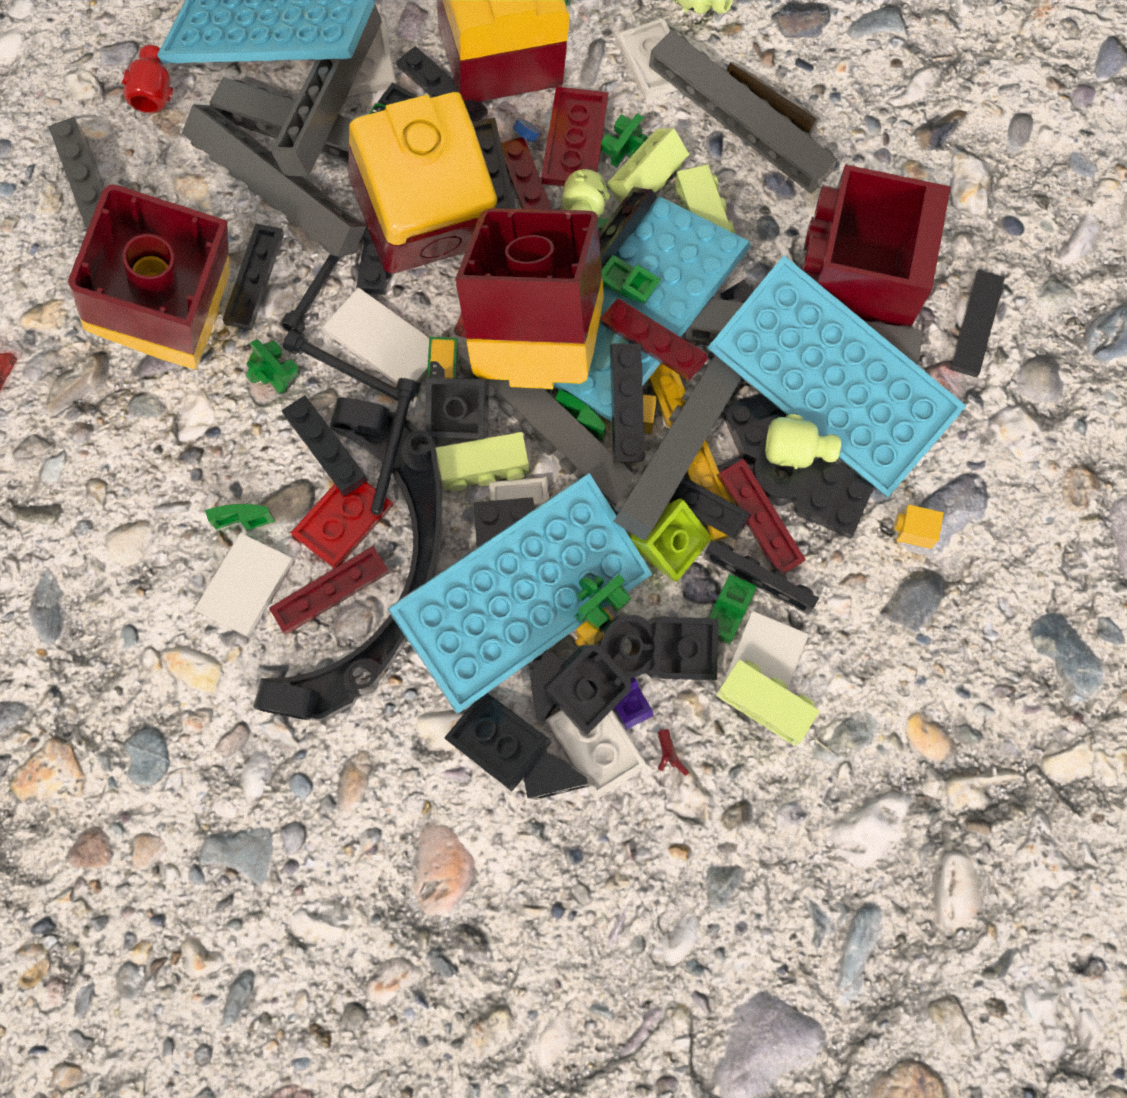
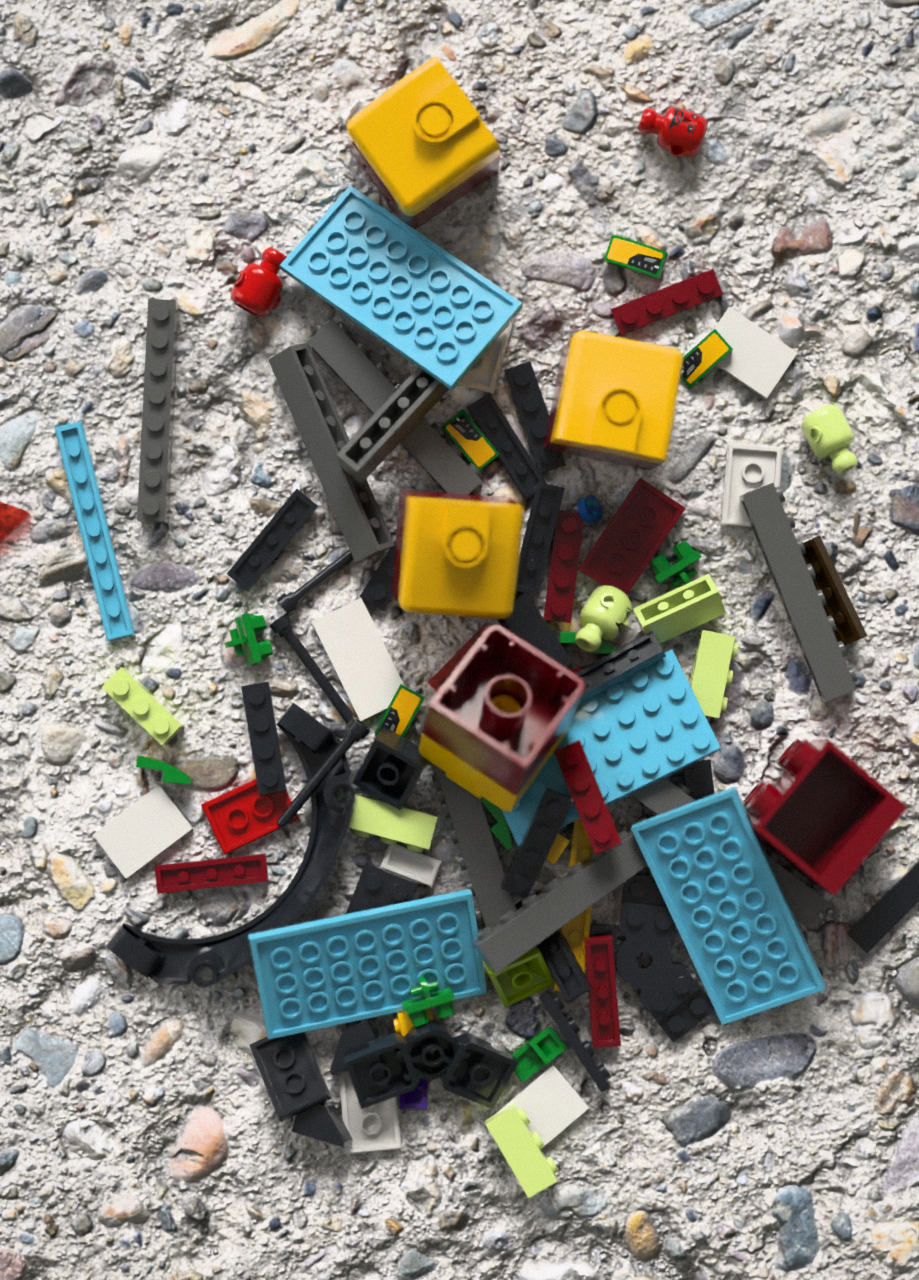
camera: 25 degrees right, 15 degrees up
(85, 346) = (95, 531): none -> medium azure tile
(151, 275) = (180, 540): dark red piece -> none
(192, 467) = (143, 706): none -> yellowish green brick
(629, 281) = (598, 726): green slope -> none
(669, 753) = (424, 1147): dark red bar -> none
(797, 443) = (662, 949): yellowish green piece -> none
(918, 526) = (731, 1063): yellow brick -> none

